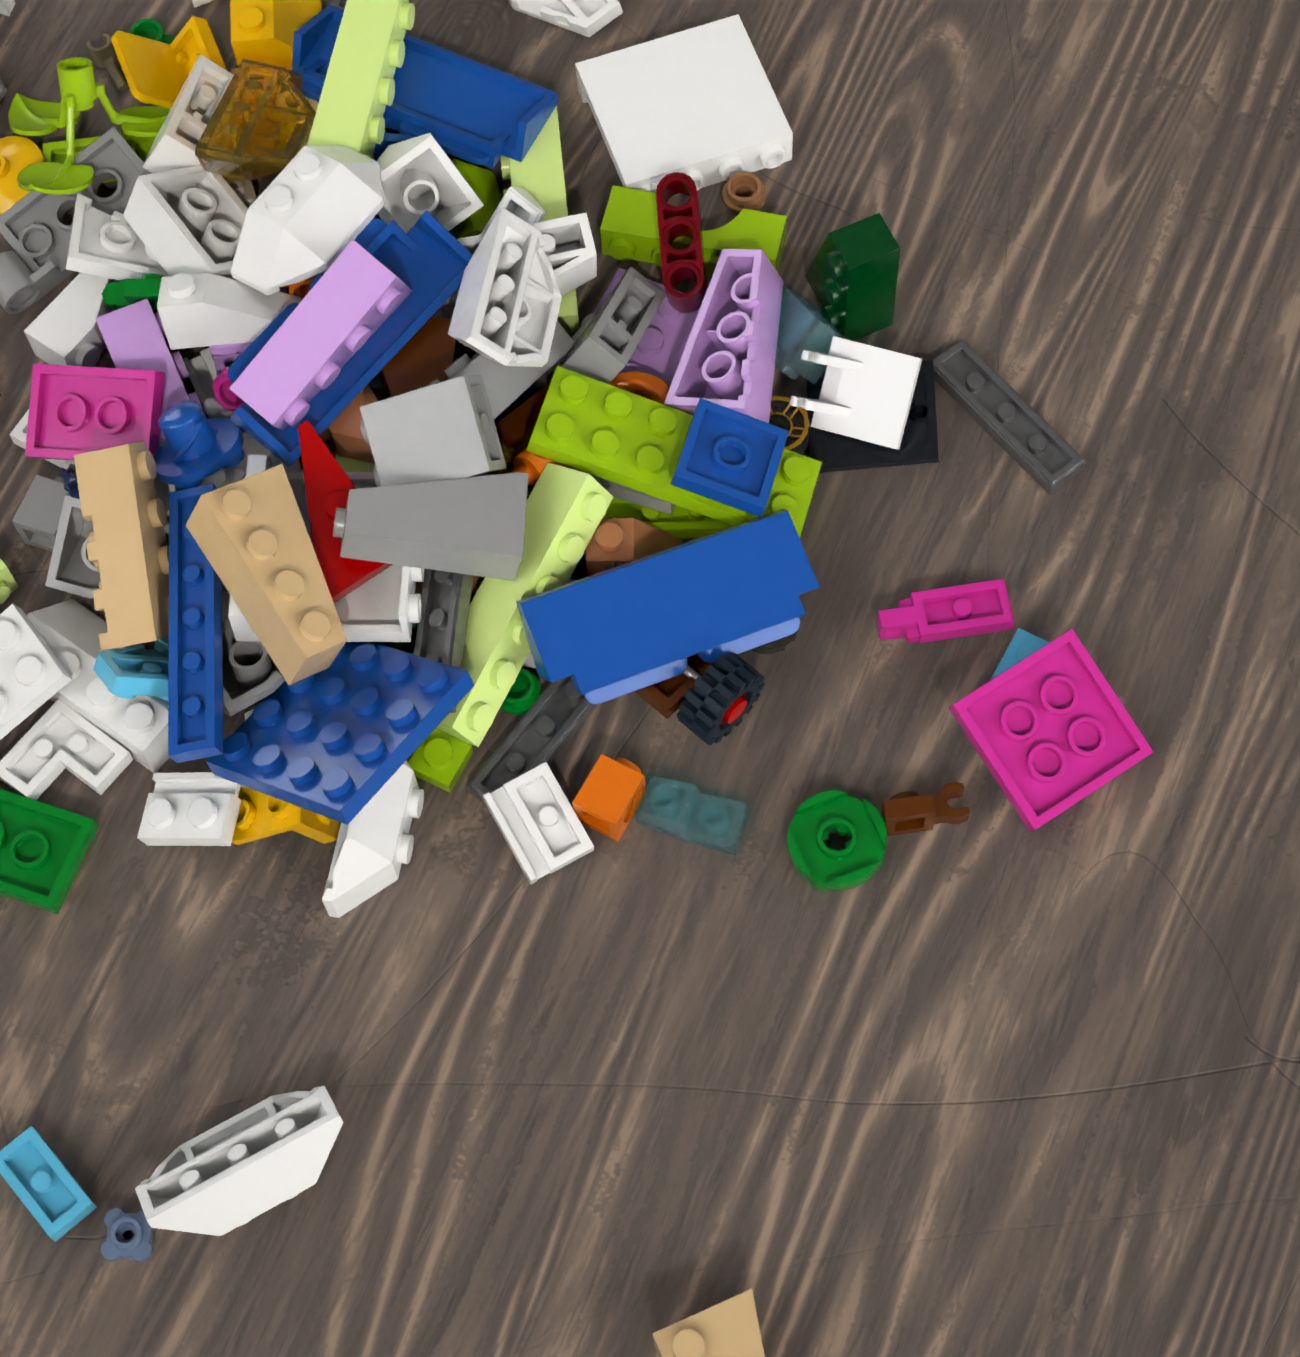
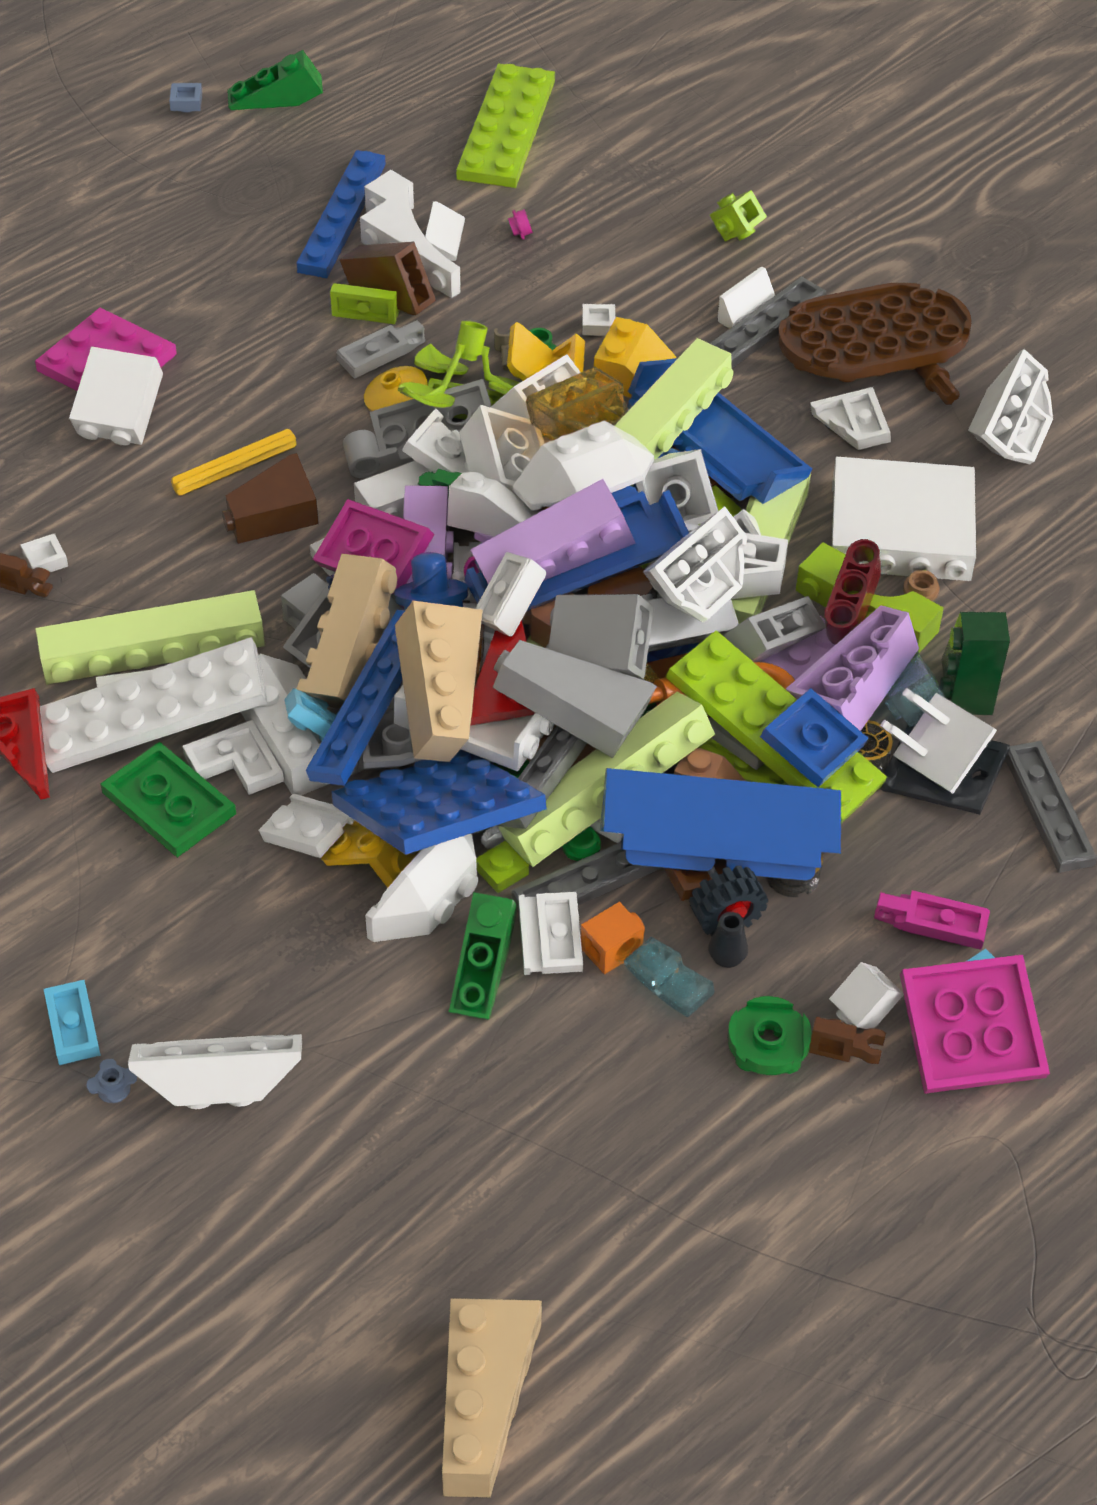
camera: 20 degrees right, 15 degrees down
(303, 426) = (510, 593): none -> white slope
(476, 886) = (483, 955): none -> green slope
(741, 745) = (729, 941): none -> black cone
(922, 750) = (865, 997): none -> white brick

